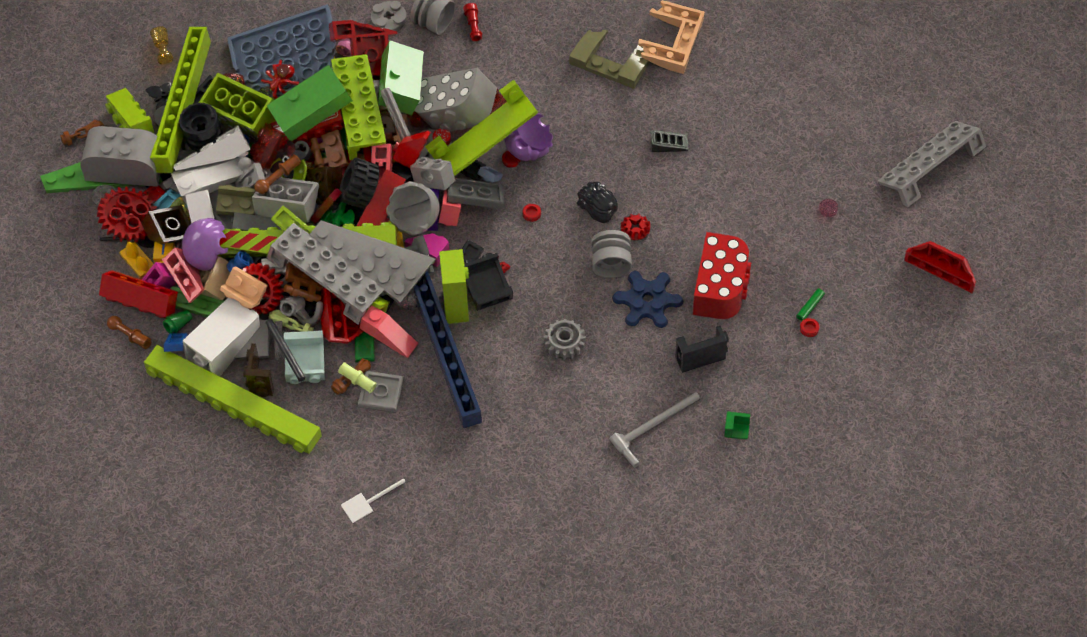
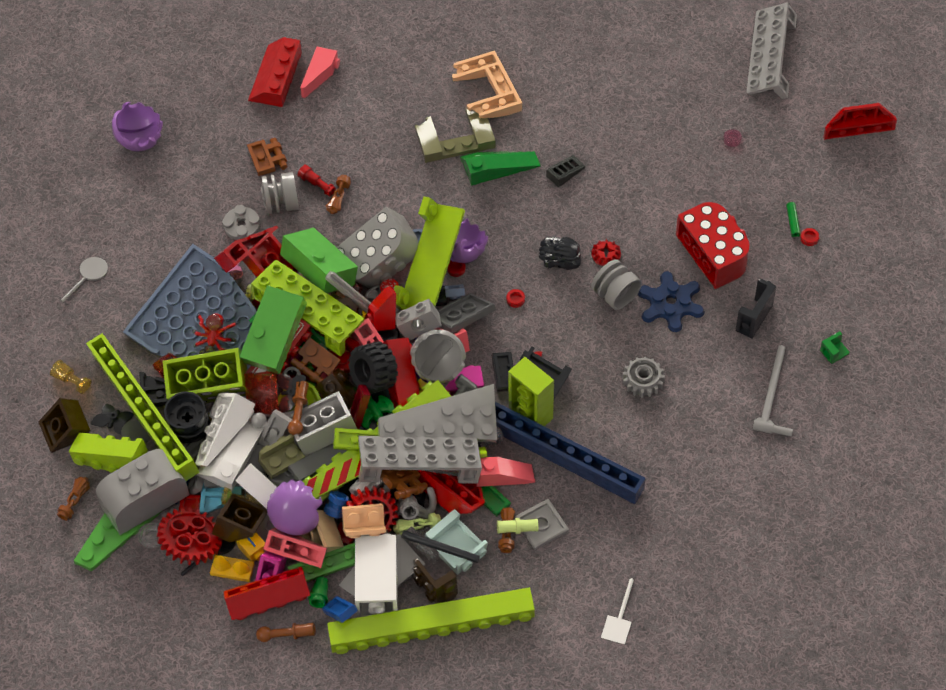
camera: 40 degrees left, 0 degrees up
(125, 73) = (63, 424): none -> dark brown slope
(468, 49) = (334, 204): none -> dark orange piece
(616, 99) = (493, 165): none -> green wedge

